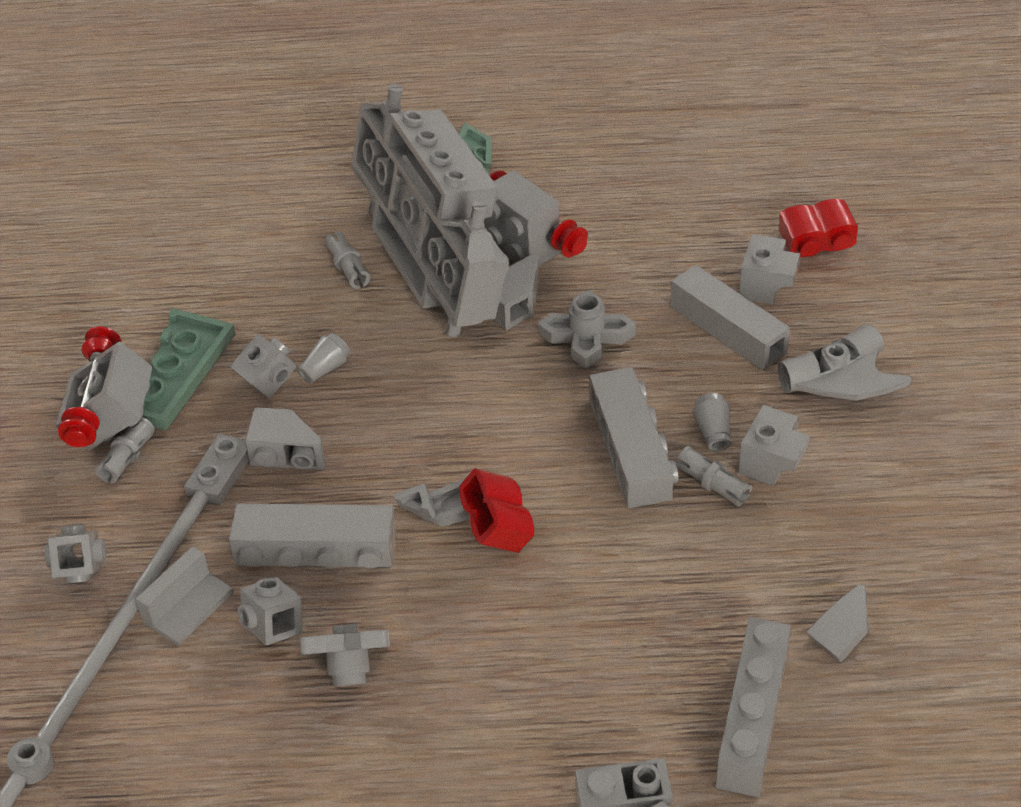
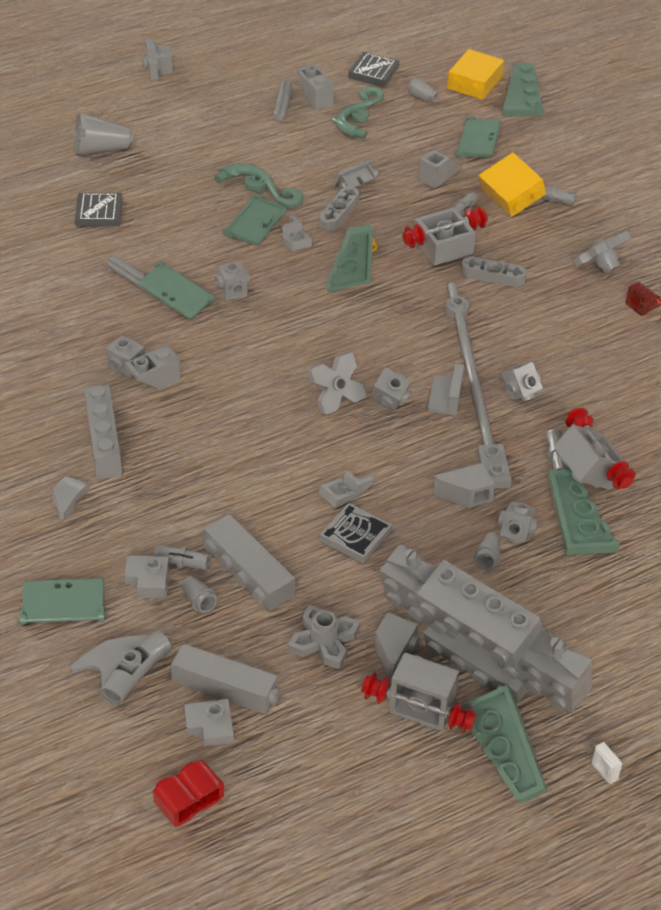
camera: 150 degrees right, 0 degrees up
(313, 535) = (401, 439): light grey brick -> none
(466, 440) = (355, 533): none -> light grey tile
(496, 510) = (302, 480): red brick -> none
(896, 476) = (50, 604): none -> sand green door

